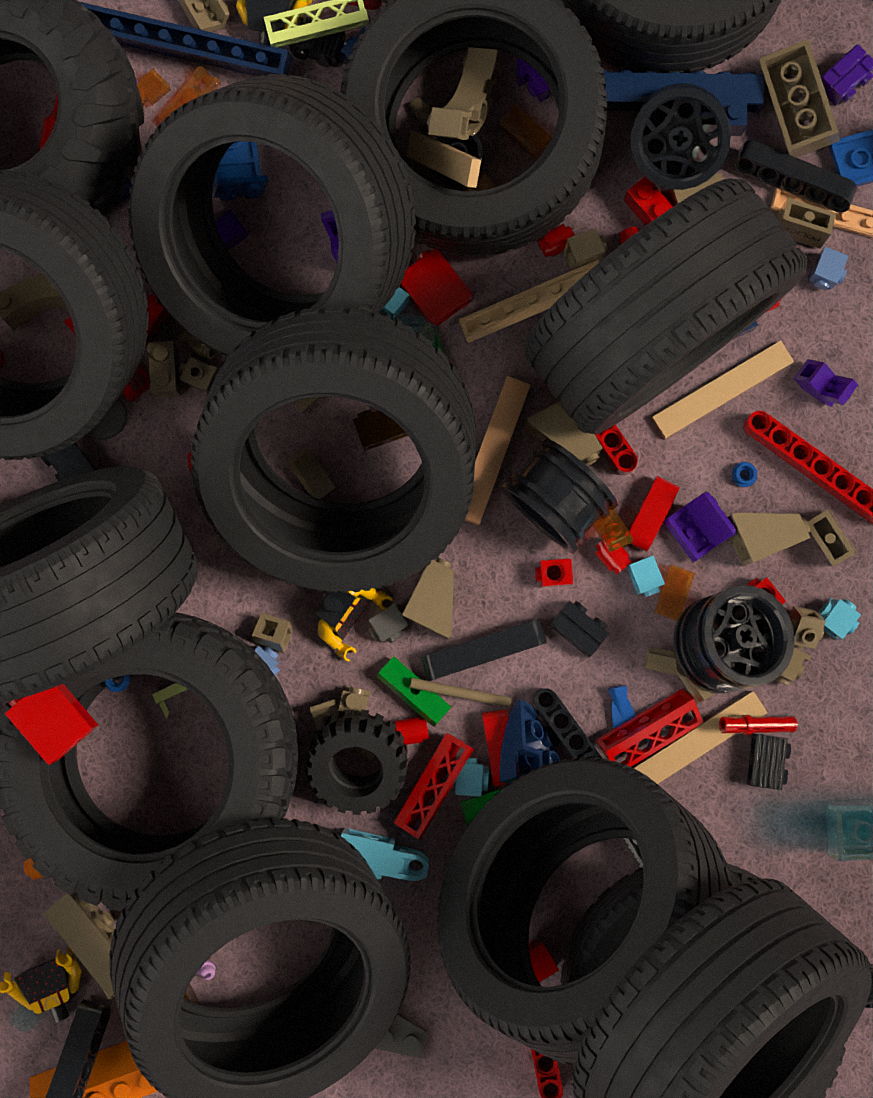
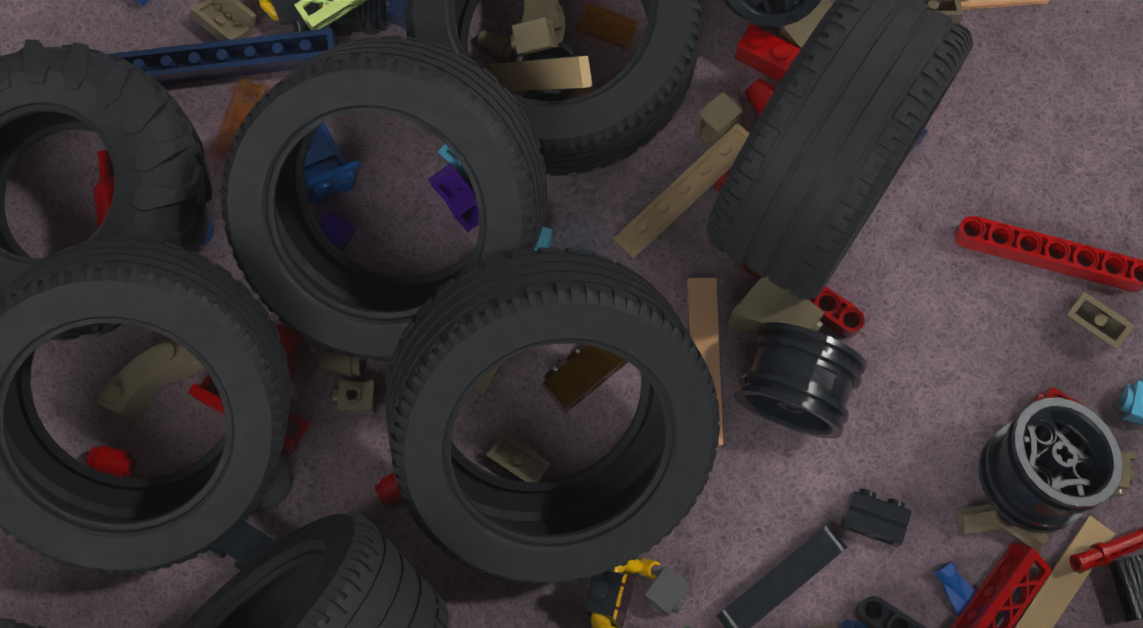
camera: 20 degrees left, 10 degrees down
(152, 87) = (201, 115): clear orange plate -> none
(164, 369) = (316, 404): dark tan brick -> none
(433, 599) = (708, 547): dark tan slope -> none
(435, 287) = (578, 213): red brick -> none
(555, 240) = (683, 122): red brick -> none
(564, 567) = (834, 459): red brick -> none
(613, 531) = (870, 400): clear orange plate -> none
(615, 560) = (878, 425): red brick -> none
(646, 576) = (923, 434): medium azure brick -> none
(652, 513) = (902, 365): red beam -> none
(674, 592) = (960, 441): clear orange plate -> none
(700, 526) = (959, 358): dark purple bracket -> none
(722, 389) = (917, 211): tan tile -> none
(752, 472) = (983, 282): blue plate -> none
(766, 534) = (1029, 343): dark tan slope -> none
(807, 627) = (1120, 421): dark tan brick -> none
(823, 384) = (1020, 168): dark purple brick -> none
(829, 269) = (980, 55): medium blue brick -> none

